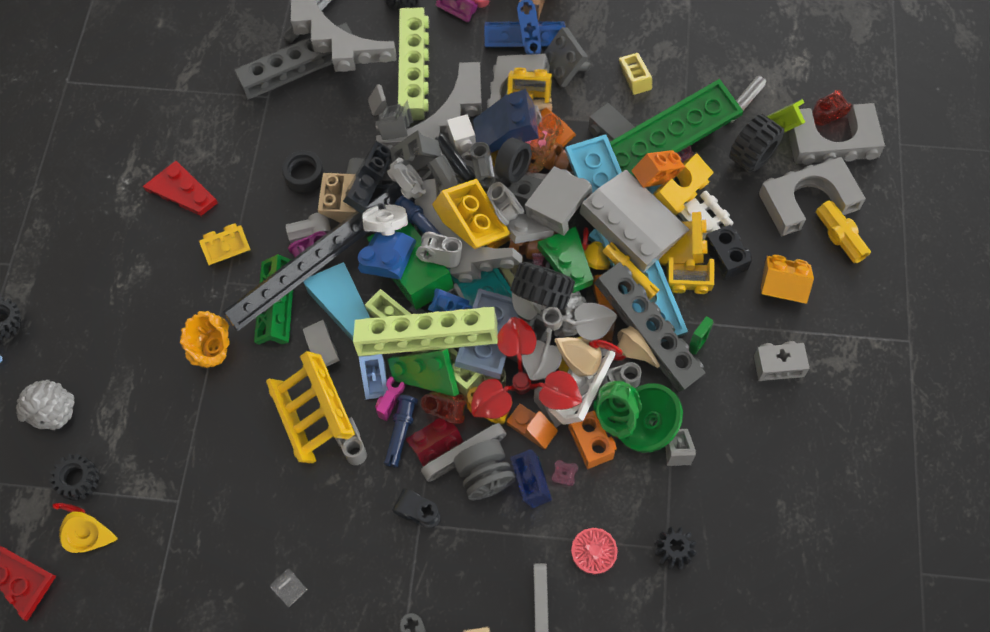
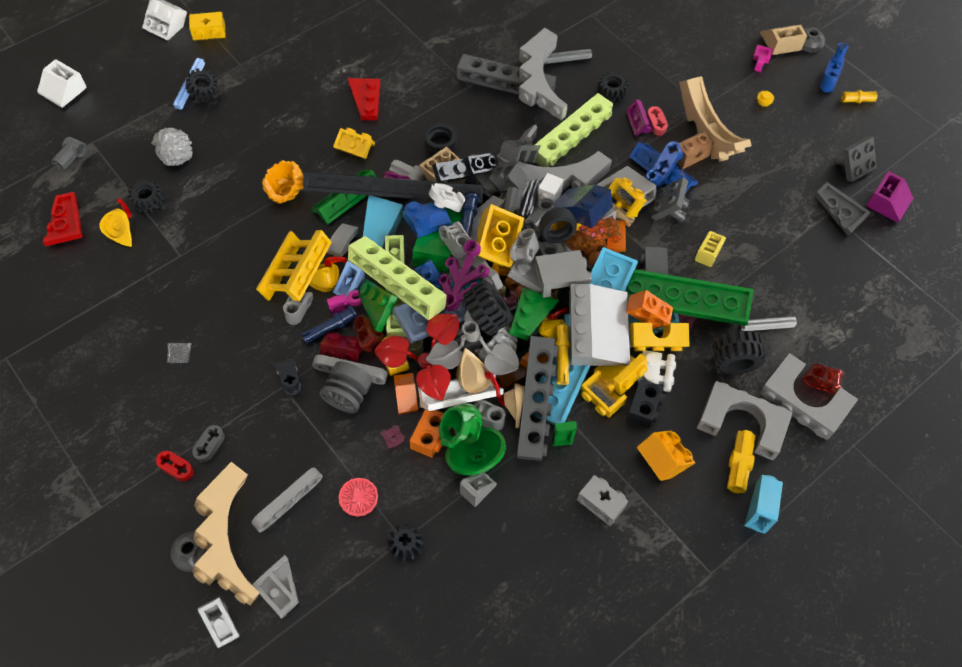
camera: 40 degrees right, 5 degrees down
(347, 386) = (327, 274): none -> yellow piece
(407, 178) = (484, 185): light grey plate -> none
(484, 281) = (462, 278): none -> magenta plant
(531, 478) = (367, 418): clear blue brick -> none
(789, 116) = (779, 355): lime panel -> none
(895, 249) = (764, 504): none -> medium azure slope

